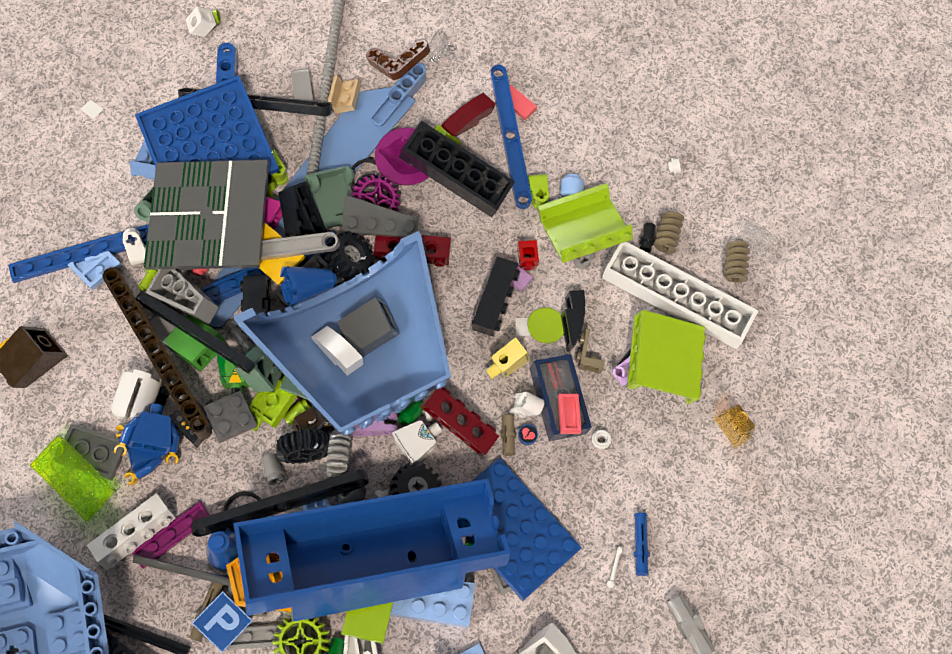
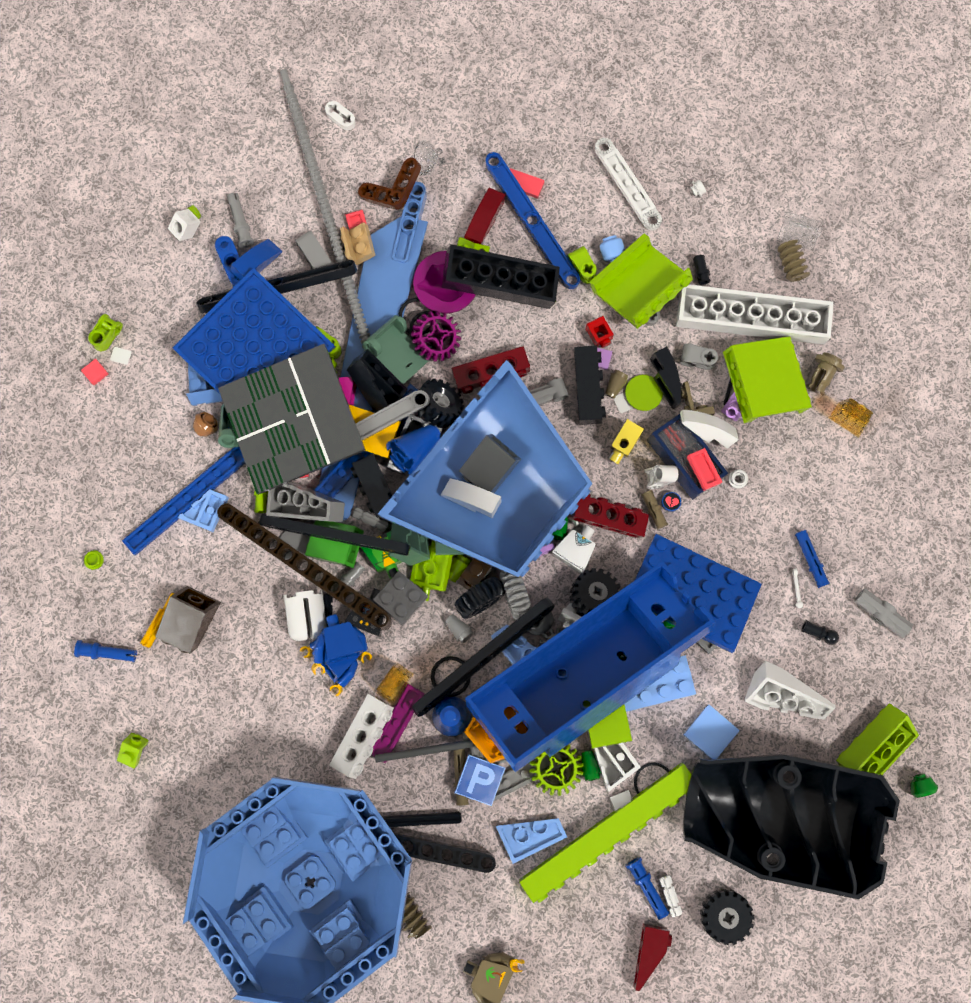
camera: 15 degrees left, 10 degrees up
(61, 113) = (94, 372): none -> coral tile
(73, 478) = (285, 711): clear neon green plate -> none
(87, 84) = (107, 330): none -> lime piece
(96, 449) = (288, 681): dark grey plate -> none
(132, 193) = (205, 424): none -> medium nougat cone
(135, 249) = (234, 476): white piece -> none
(186, 494) = (394, 683): none -> clear yellow torso
(198, 379) = (351, 576): none -> light grey pin
(249, 44) = (241, 227): none -> light grey pin
(249, 71) = (258, 258): none -> blue slope
(351, 74) = (355, 219): none -> coral tile
(374, 220) = (444, 359): dark grey wing -> none
(462, 290) = (553, 391): none -> light grey piece
(522, 306) = (616, 383): none -> dark tan cone
(592, 378) = (709, 427): none -> white slope
(608, 311) = (697, 357): none -> light grey piece
(612, 138) = (628, 184): none -> white plate
(628, 627) = (830, 637): none -> black pin
(668, 232) = (718, 258): dark tan piece -> none
(725, 373) = (829, 365): none -> dark tan piece

